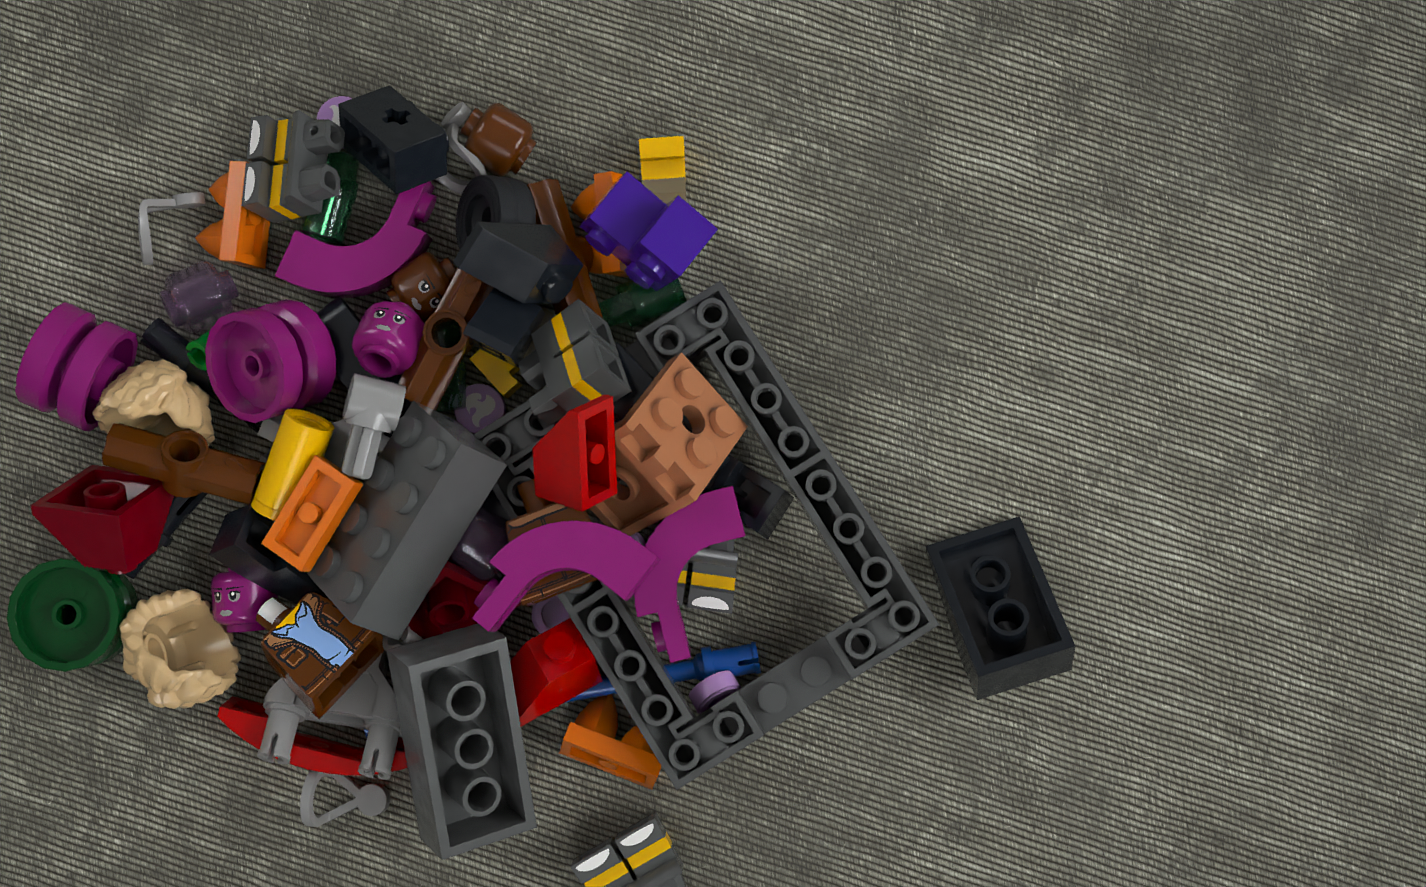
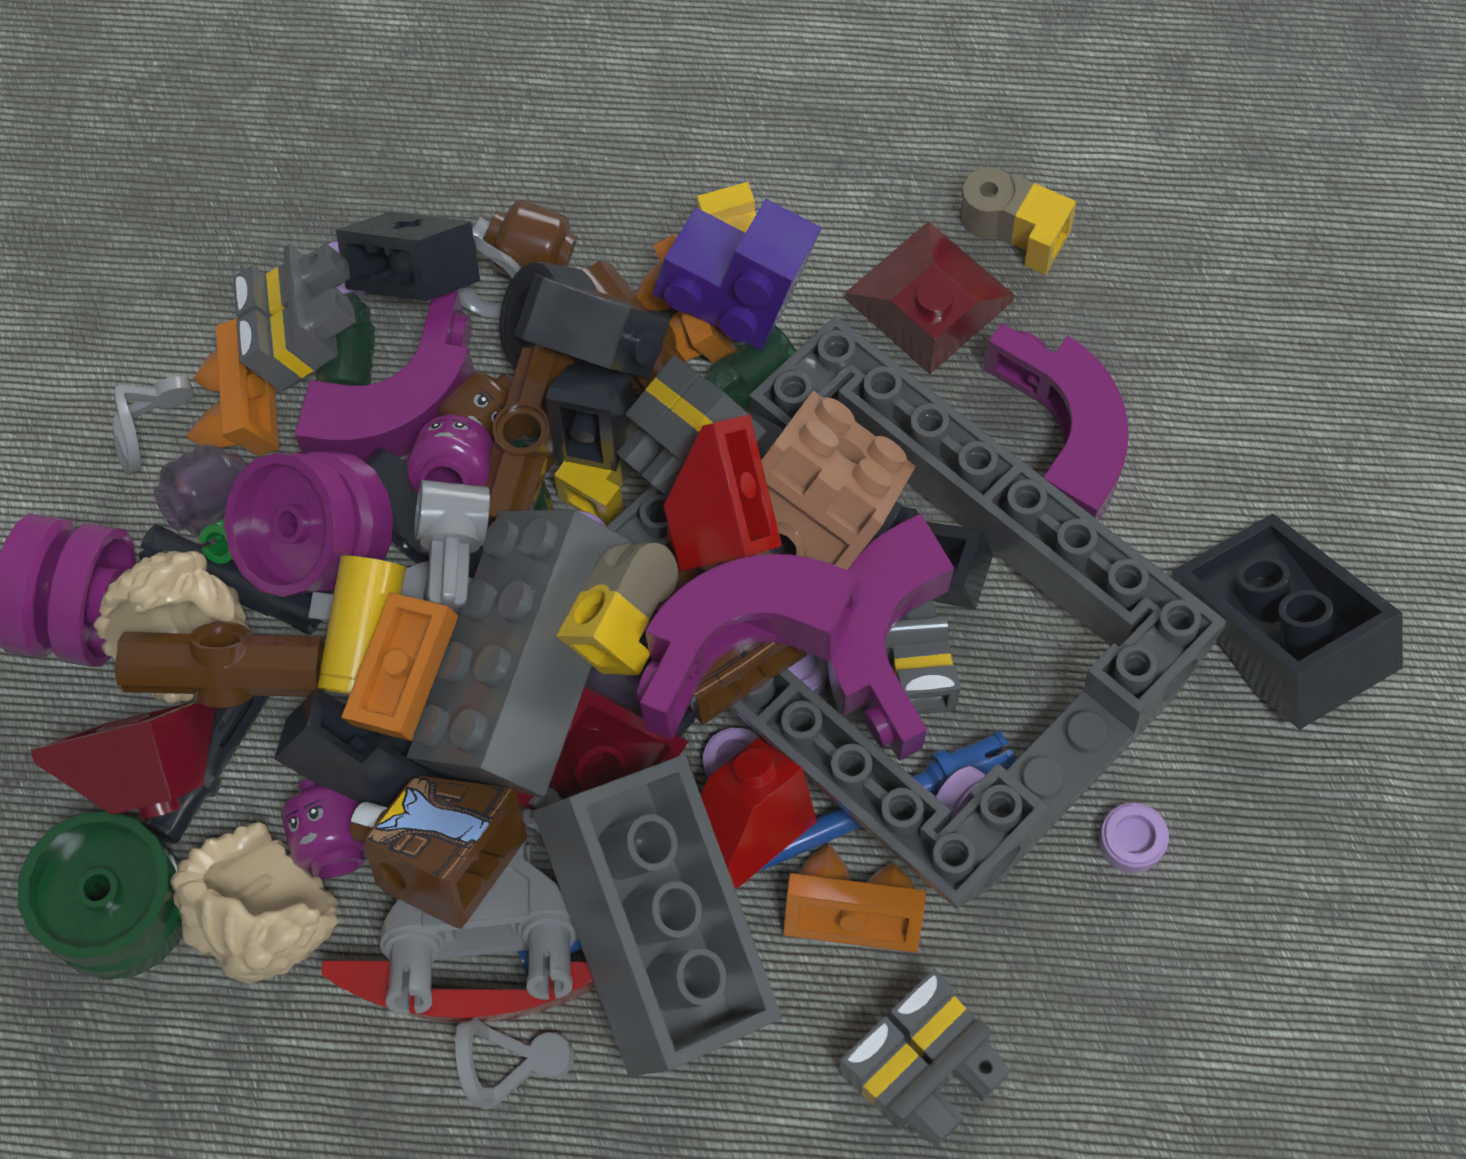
camera: 15 degrees left, 20 degrees down
(481, 517) = (617, 606): none -> leg
(808, 260) = (929, 297): none -> dark red slope
(832, 744) = (1133, 838): none -> lavender tile
(900, 207) = (1017, 213): none -> leg
(901, 407) = (1082, 401): none -> magenta arch

